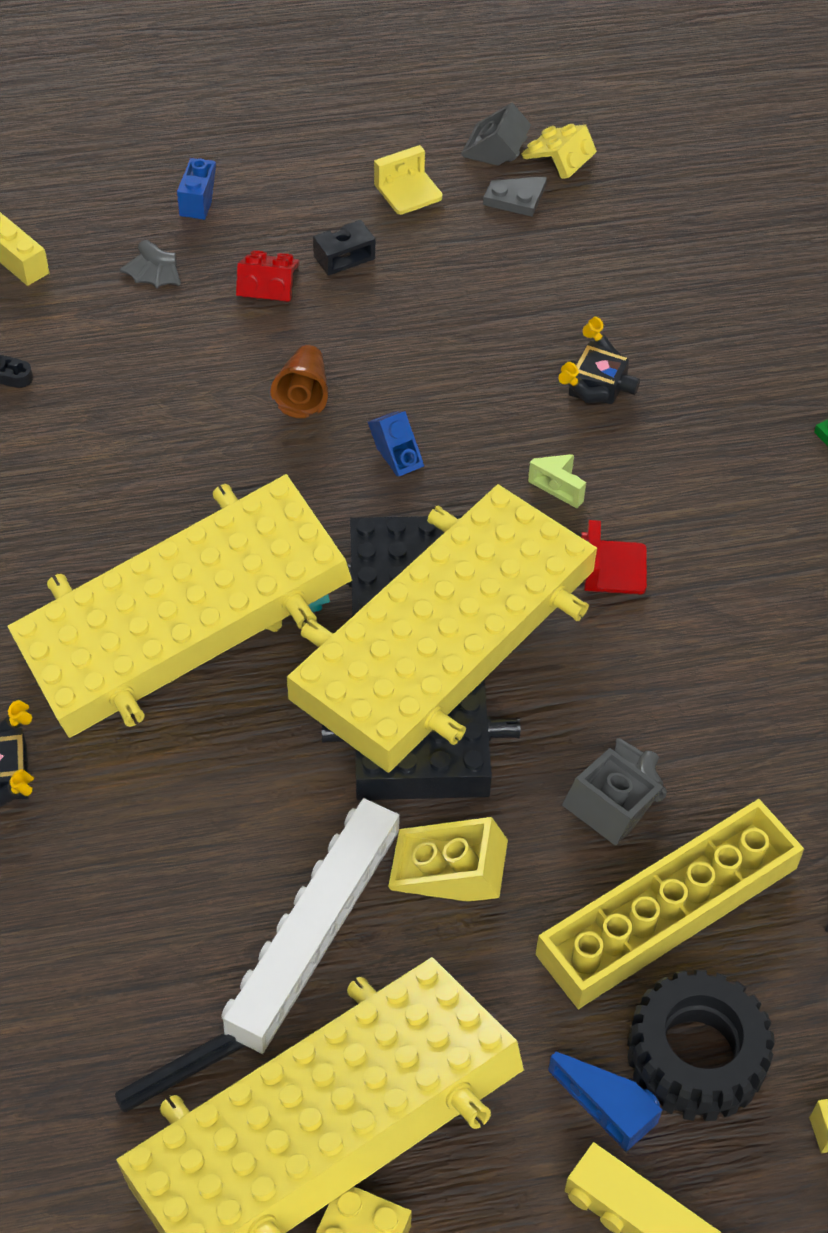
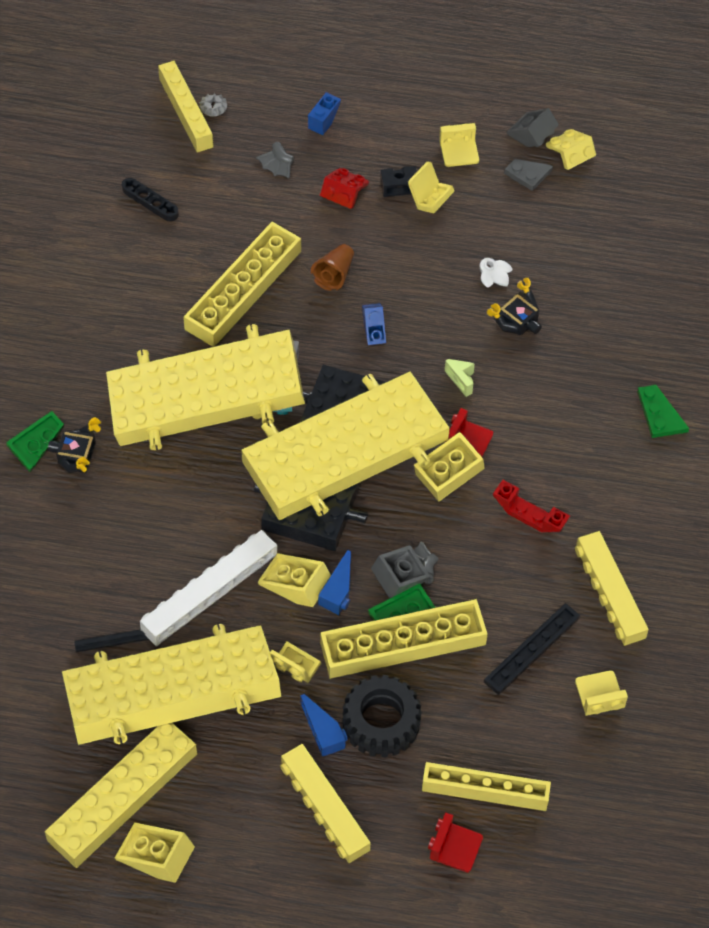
camera: 20 degrees right, 5 degrees up
(38, 217) = (219, 107): none -> light grey gear
(172, 443) = (242, 284): none -> light yellow brick
(393, 253) = (427, 190): none -> light yellow bracket
(516, 1000) = (296, 662): none -> light yellow bracket
(526, 853) = (336, 590): none -> blue slope
(535, 329) = (495, 274): none -> white plate
(619, 606) = (450, 466): none -> light yellow brick
(642, 845) = (407, 602): none -> green wing
(761, 647) = (526, 512): none -> red slope

